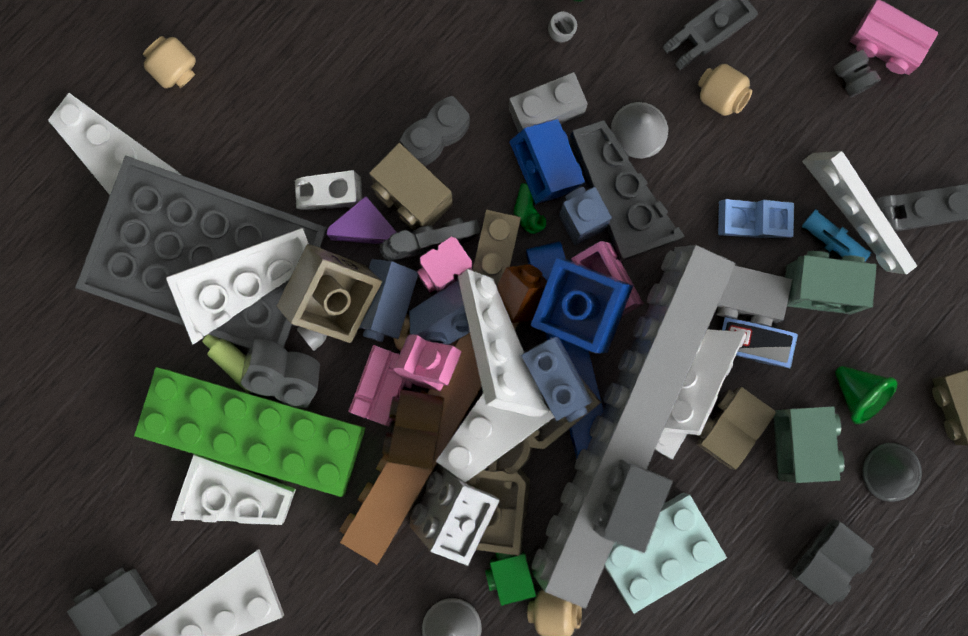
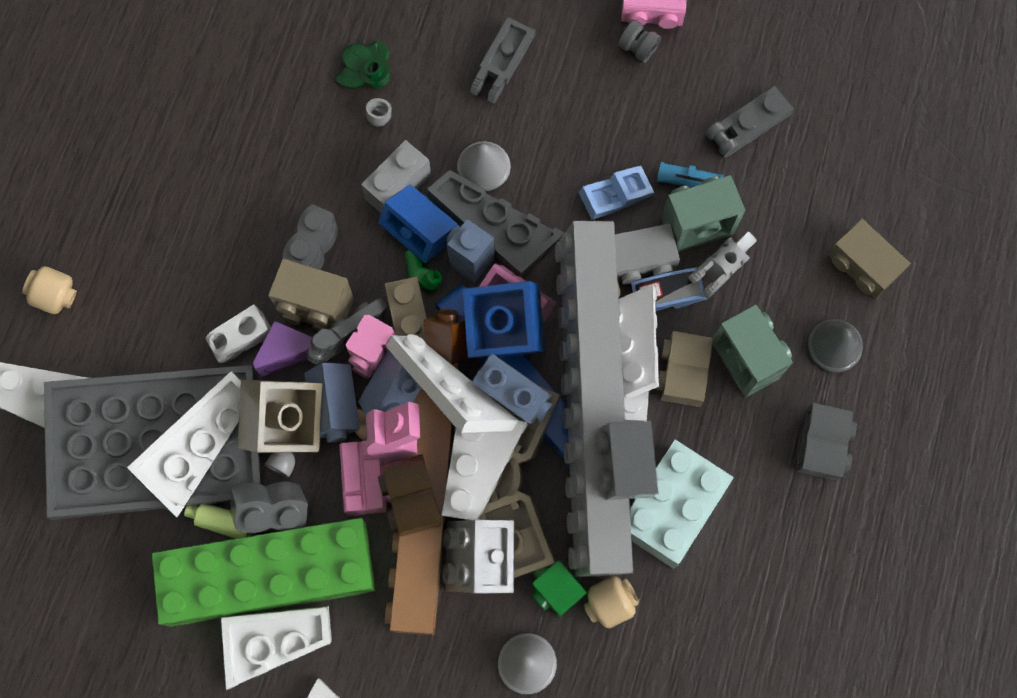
camera: 25 degrees left, 10 degrees down
(725, 89) = (538, 101): tan head -> none
(825, 342) = (723, 263): none -> light grey hinge
(856, 203) = (694, 142): white wing -> none
(864, 392) = (778, 289): green hat -> none

